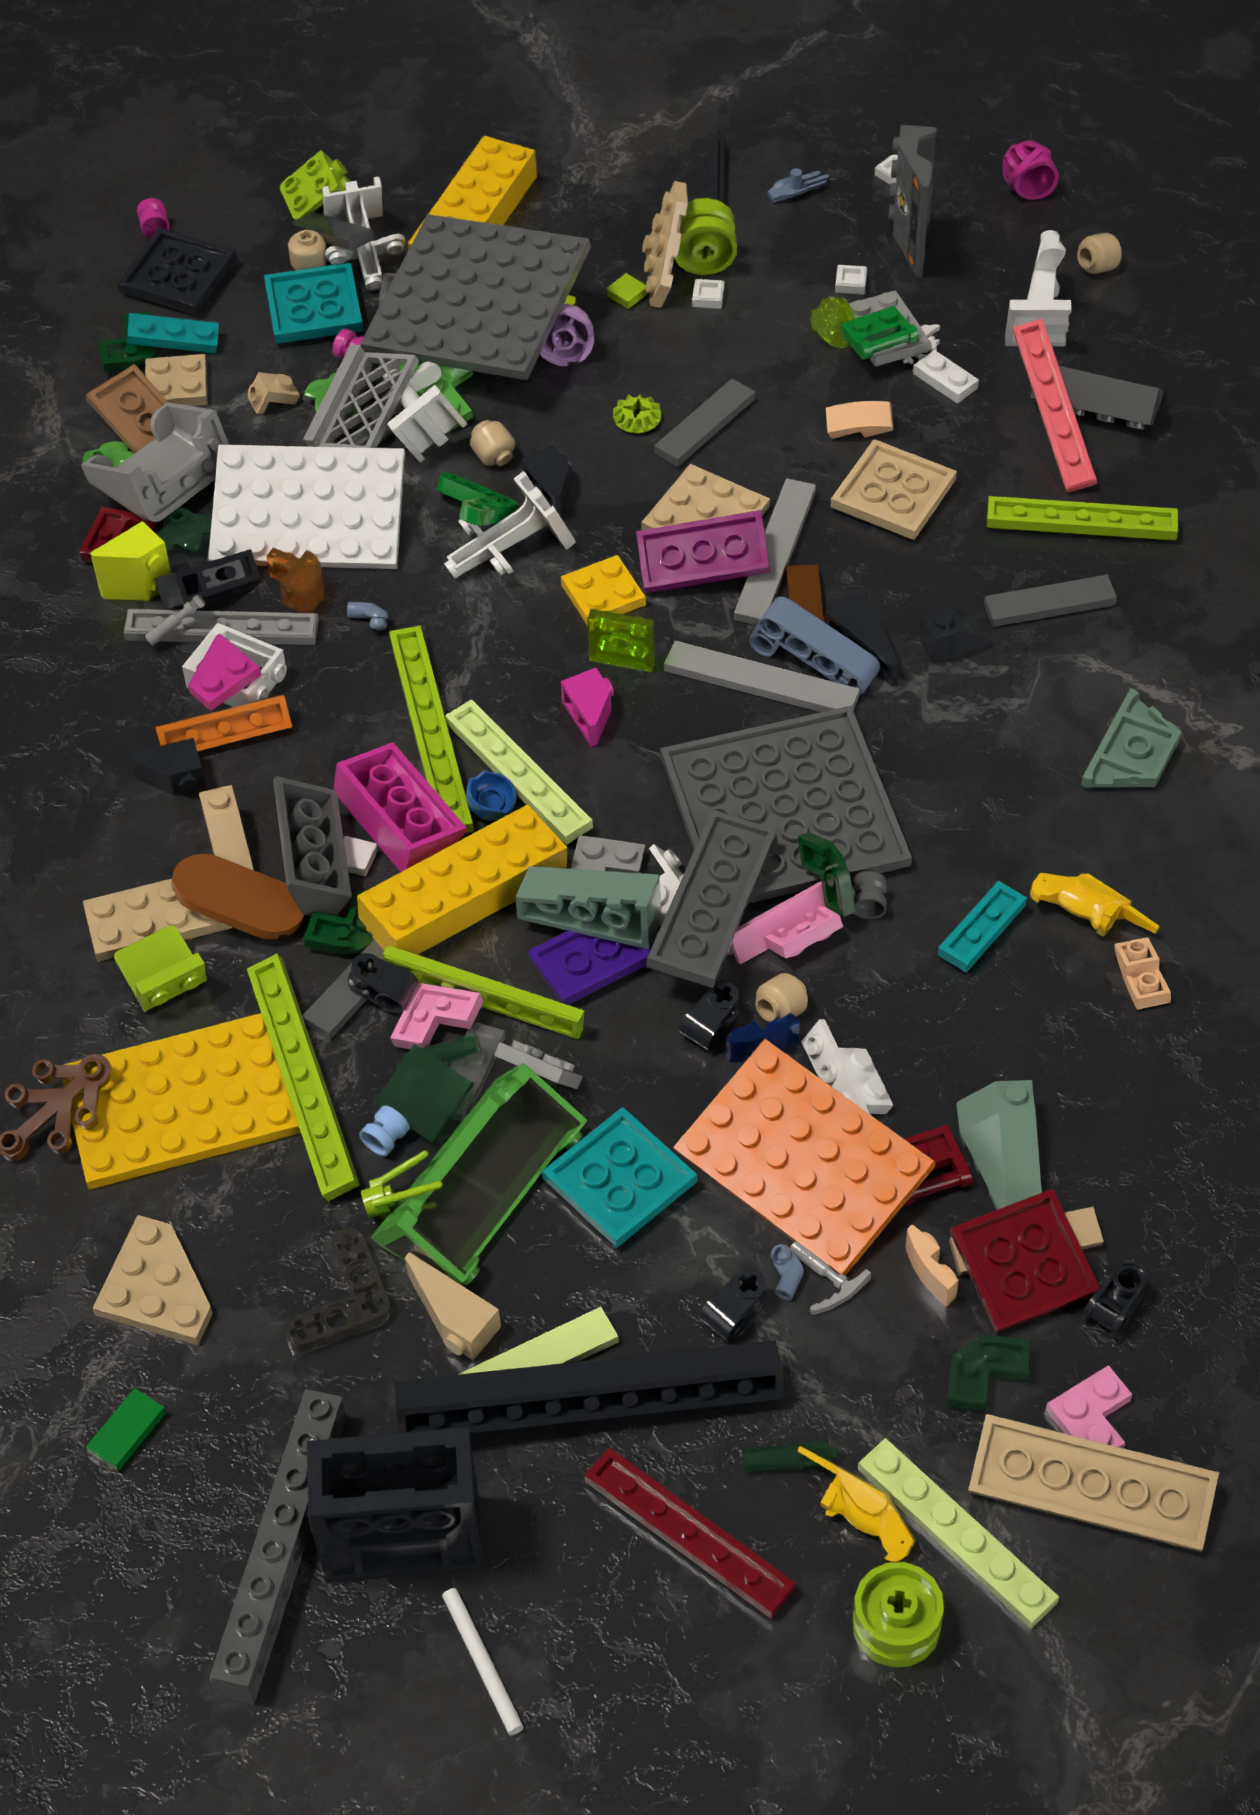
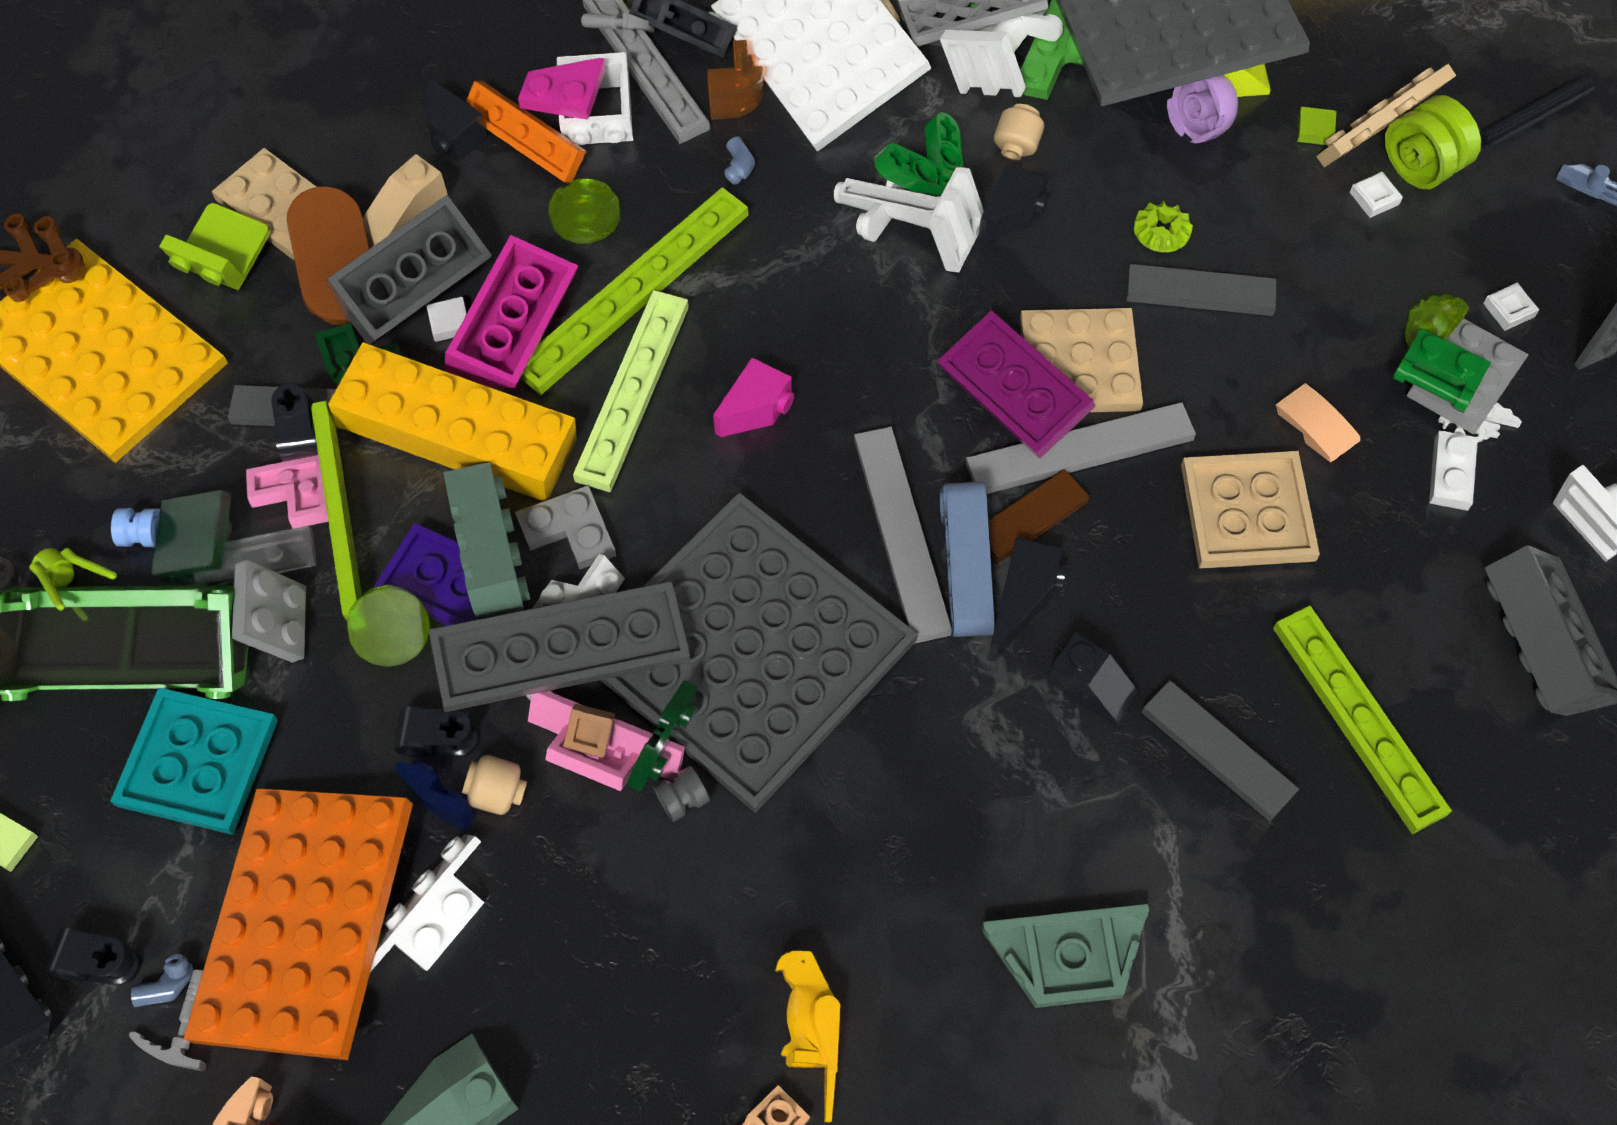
camera: 55 degrees right, 10 degrees up
(303, 1078) = (162, 427): lime plate -> none
(328, 728) = (584, 211): none -> clear neon green tile
(452, 1049) = (250, 523): clear green piece -> none
(490, 796) = (580, 382): blue hair -> none
(604, 588) = (913, 330): yellow plate -> none
(607, 1000) = (388, 625): none -> clear neon green tile
(621, 640) = (842, 380): clear neon green plate -> none
(790, 913) = (589, 730): none -> medium nougat plate
(944, 1151) = (386, 1044): dark red plate -> none
(982, 926) = (714, 930): teal plate -> none
(1054, 406) = (1484, 596): coral tile -> none

